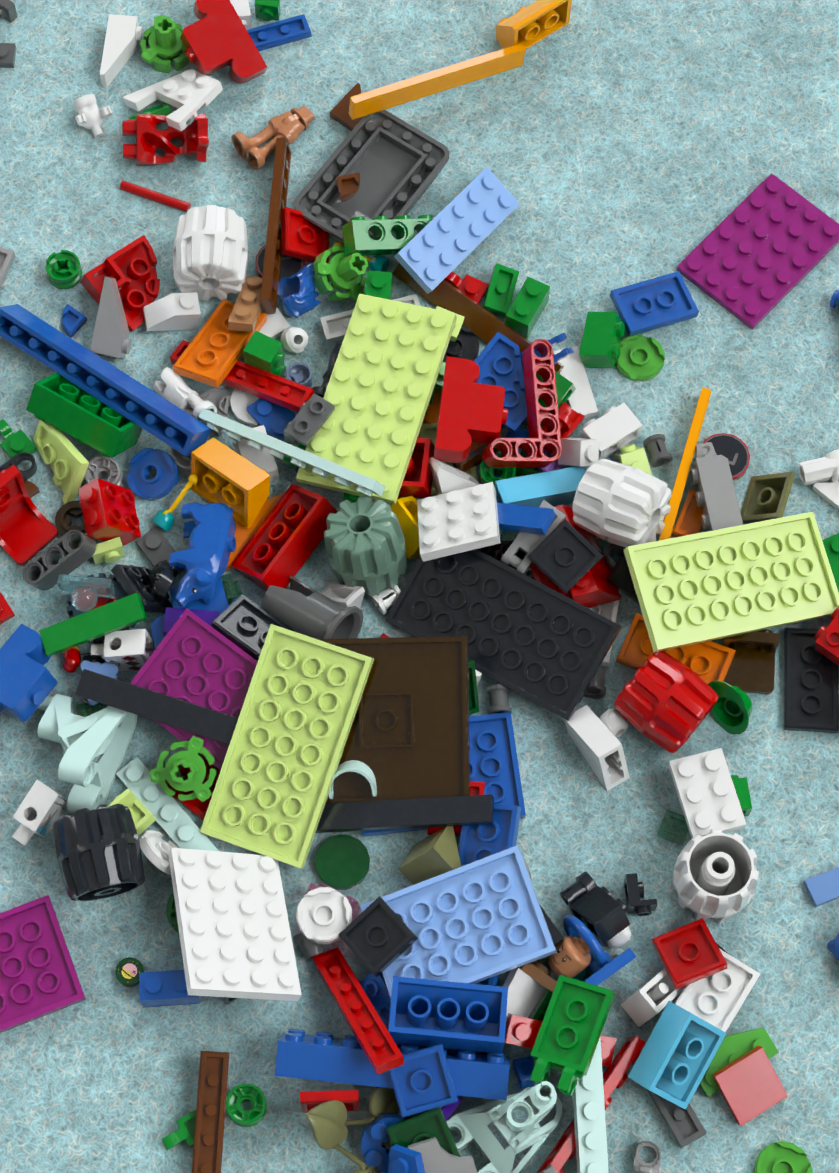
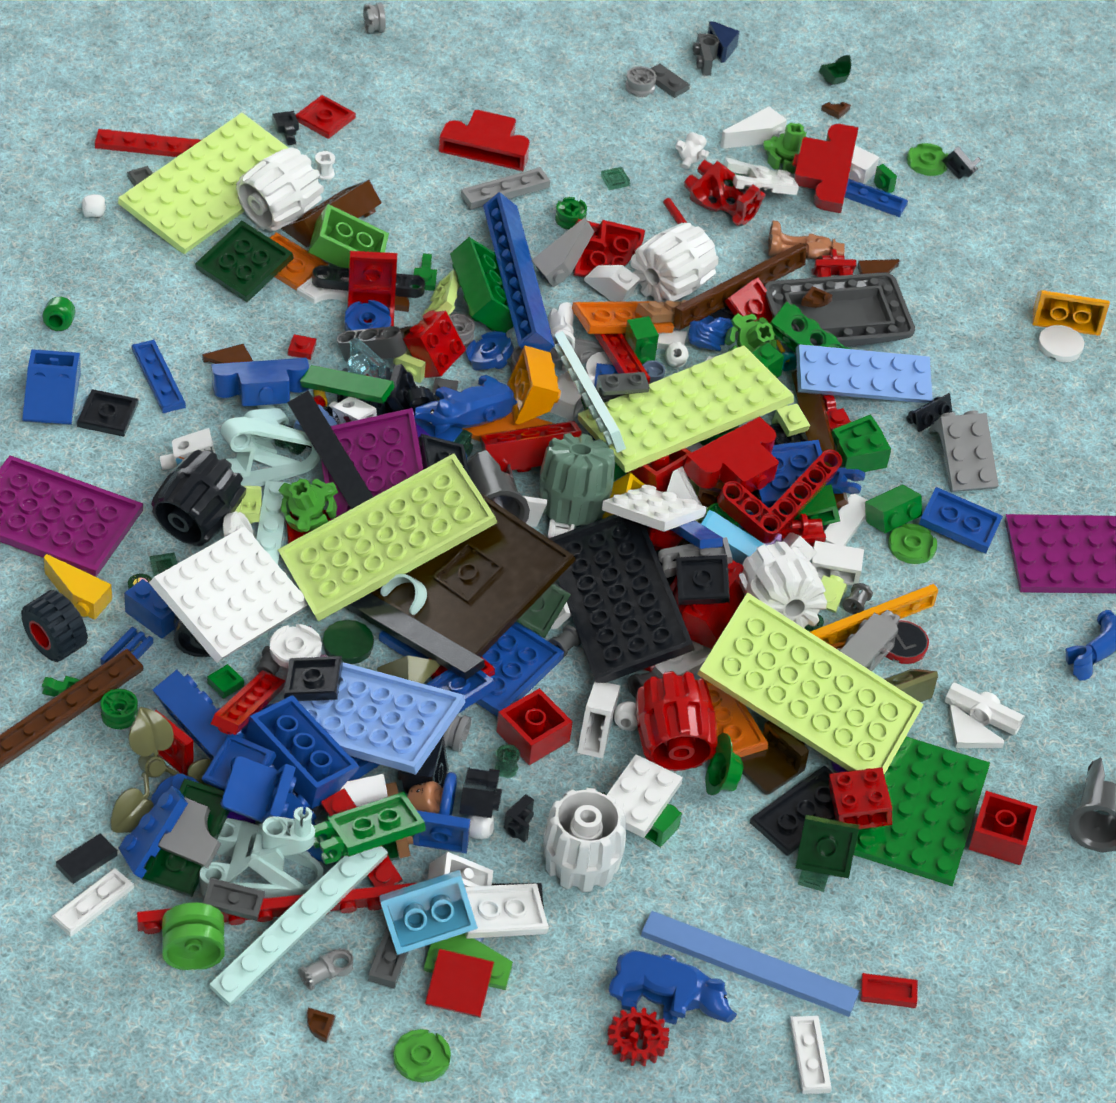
camera: 40 degrees right, 20 degrees down
(15, 529) = (372, 310): none -> blue plate
(57, 198) = (615, 178): none -> clear green tile
(72, 320) = (542, 242): blue tile -> none
(92, 1027) = (83, 590): none -> yellow slope
(122, 1088) = (54, 625): none -> black wheel
(127, 934) = (162, 562): none -> clear green tile
(165, 518) = (469, 379): hinge -> none
(184, 1021) = (129, 641): none -> blue tile
(304, 1001) = (225, 681): none -> green plate
(330, 133) = (833, 265): none -> red hips
(436, 81) = (954, 290): light orange tile -> none
(469, 1090) = (258, 789): none -> blue bracket
(531, 208) = (930, 412): none -> black hinge
(552, 57) = (1061, 343): none -> white tile
(565, 805) = (534, 726): none -> red brick
(579, 845) = (511, 757): none -> clear green bush
(597, 232) = (967, 451): none -> light grey bracket
(689, 953) = (512, 871): red tile -> none

